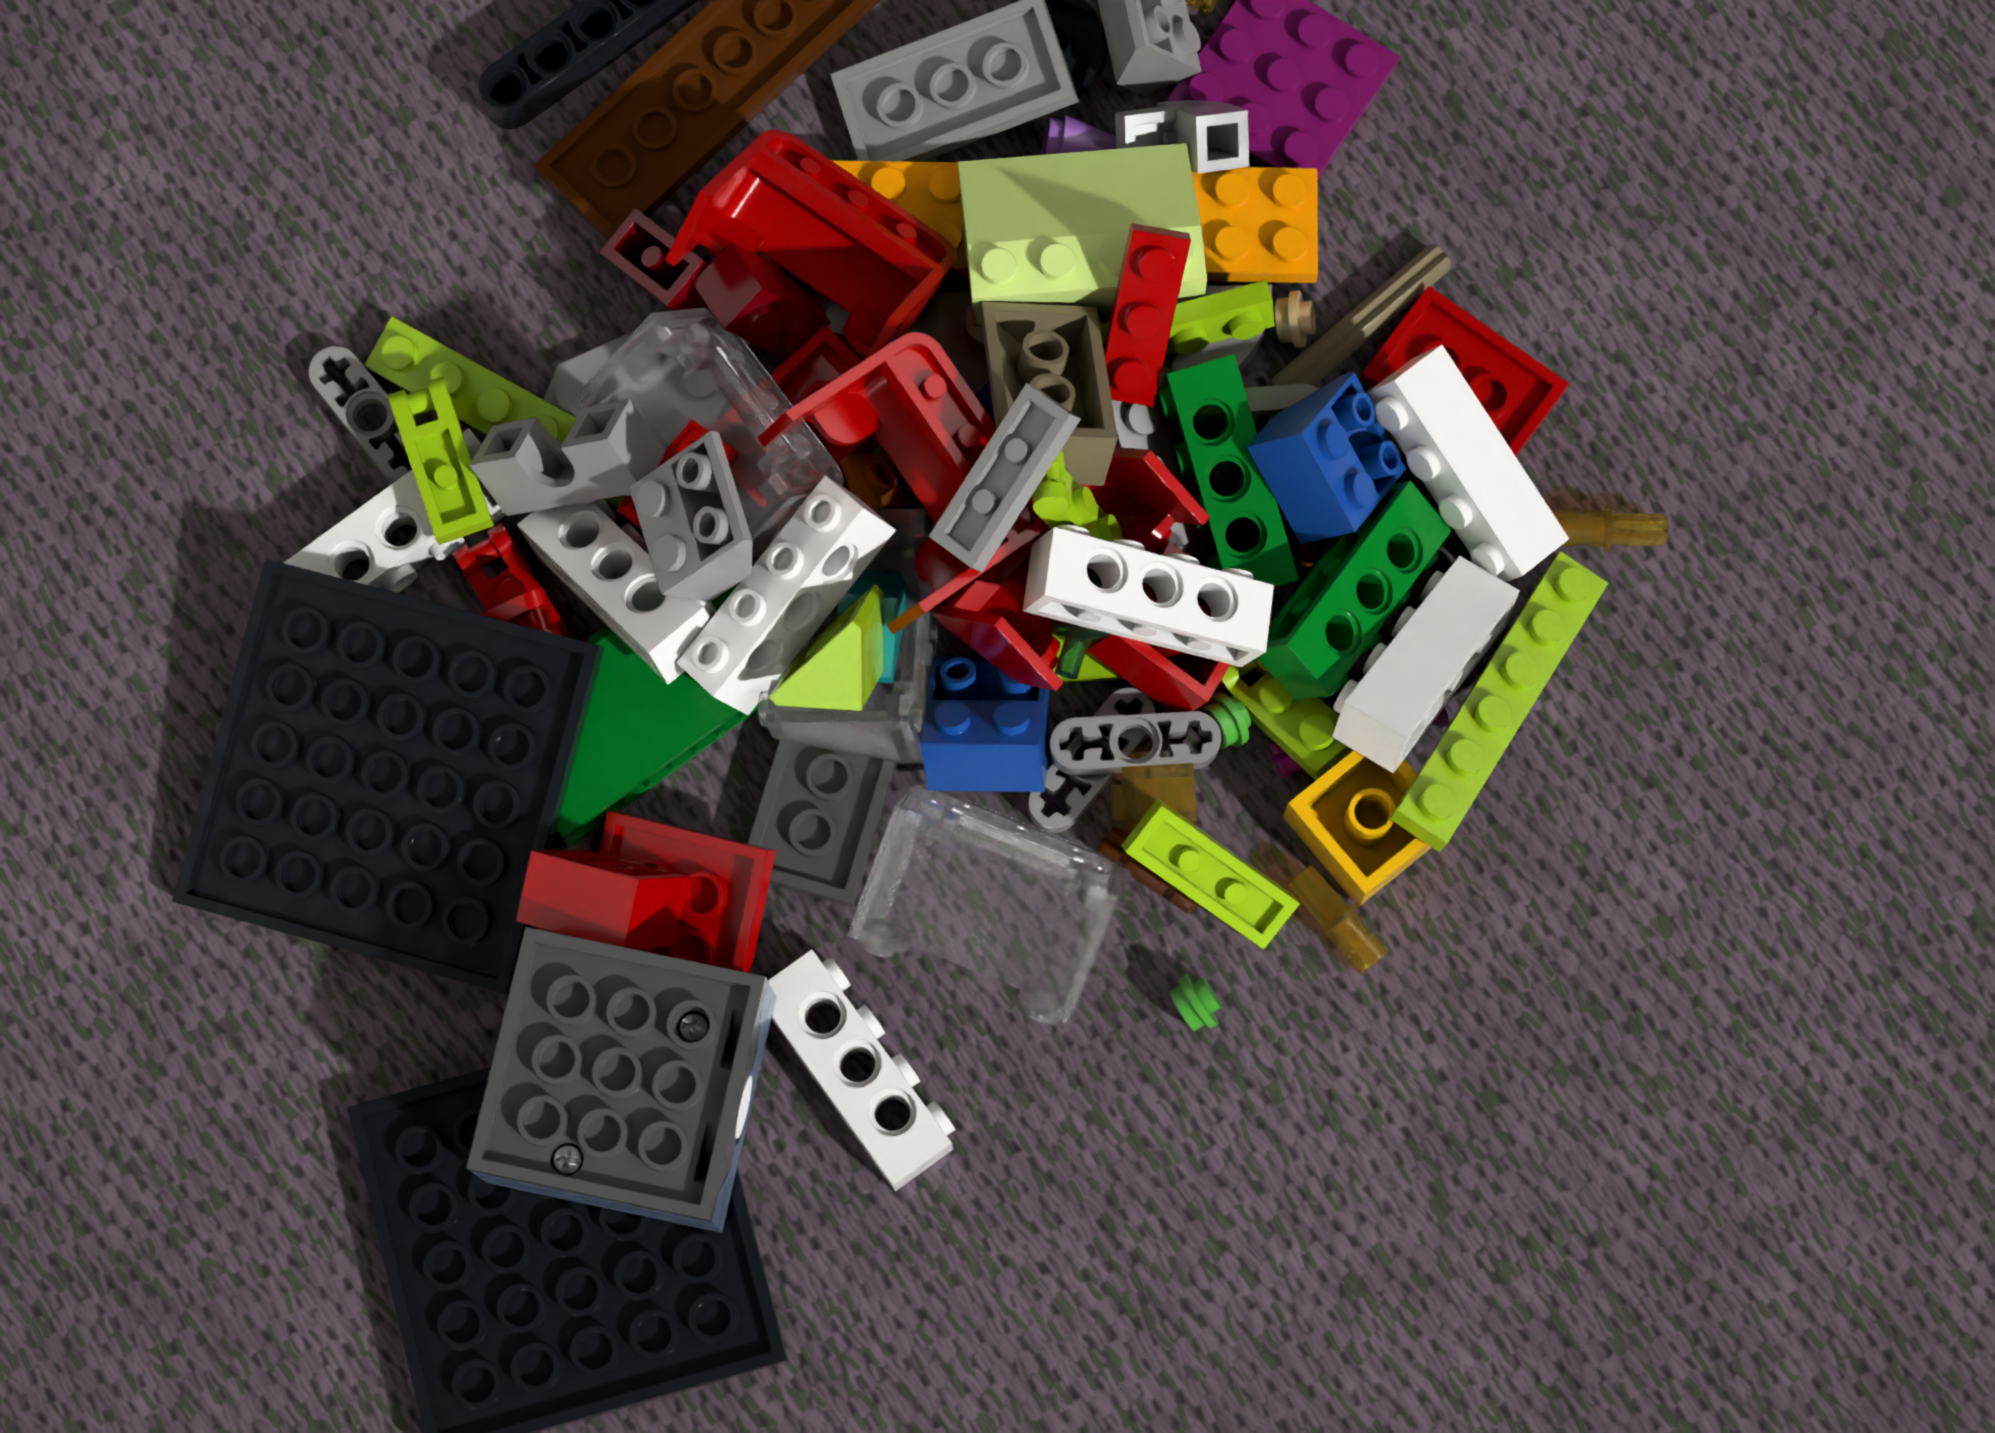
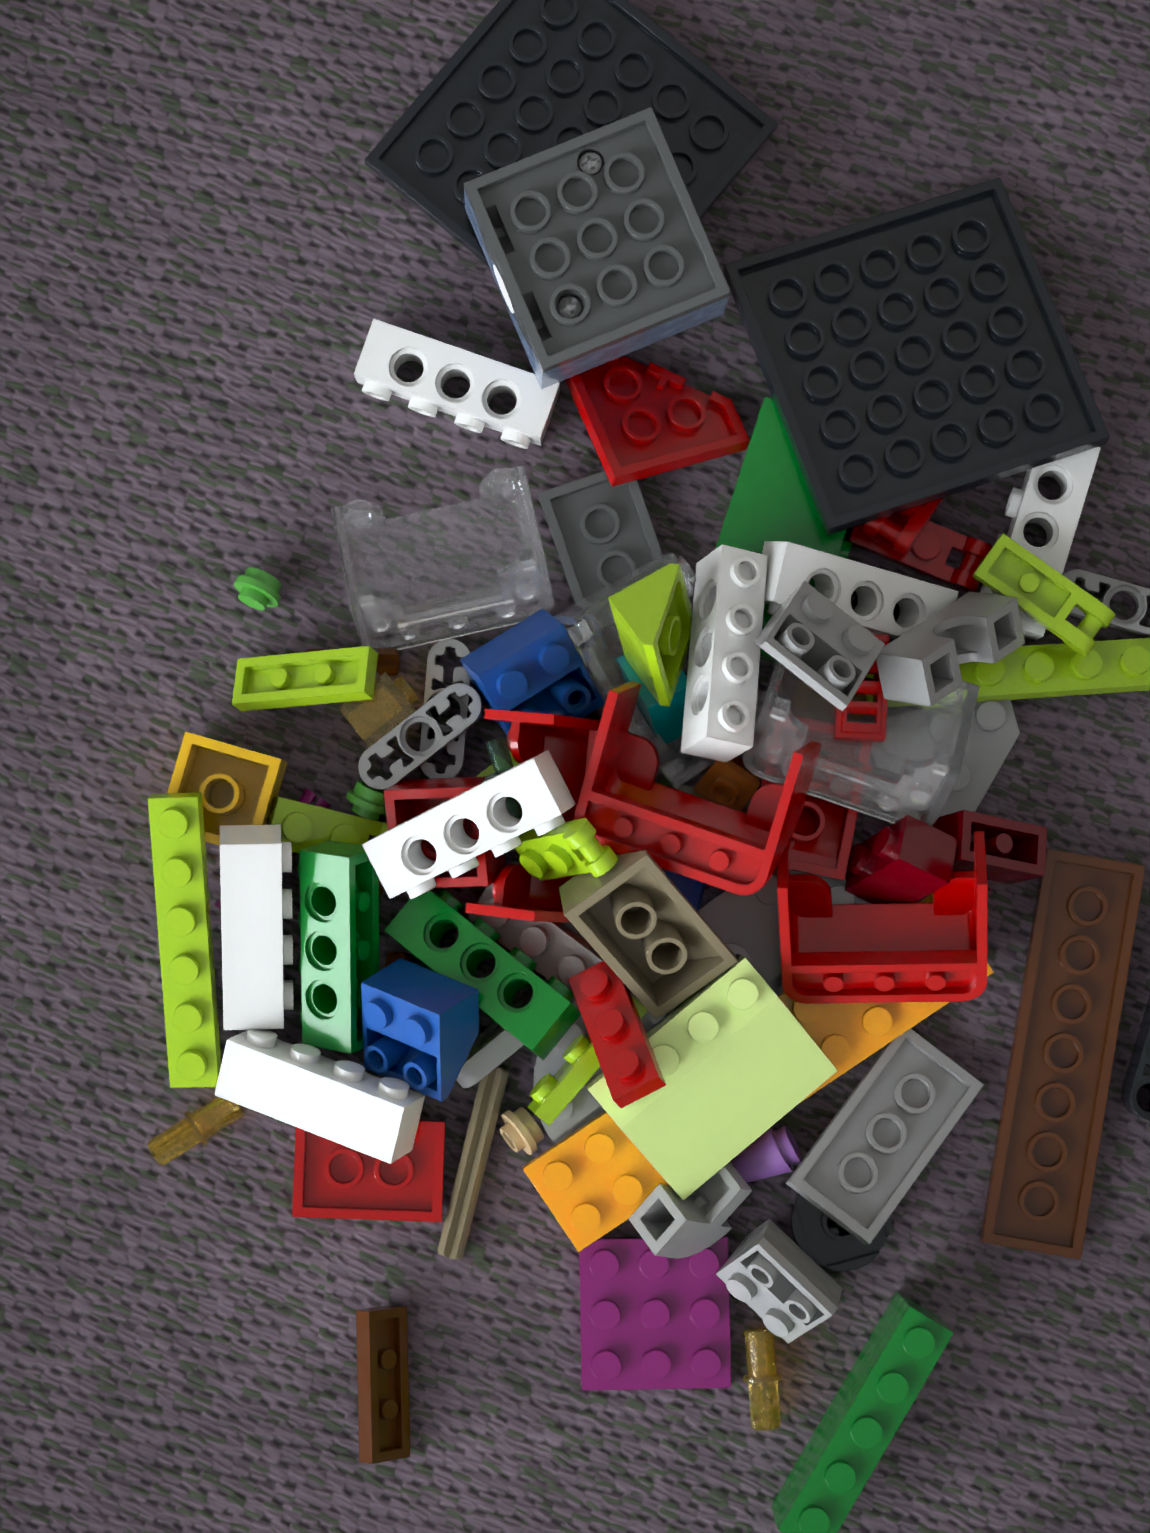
camera: 150 degrees right, 10 degrees up
(602, 898) = (703, 366): red brick -> none
(1004, 477) = (619, 823): light grey plate -> none
(1338, 920) = (200, 713): clear yellow axle -> none
(1583, 181) = (383, 1383): none -> reddish brown plate

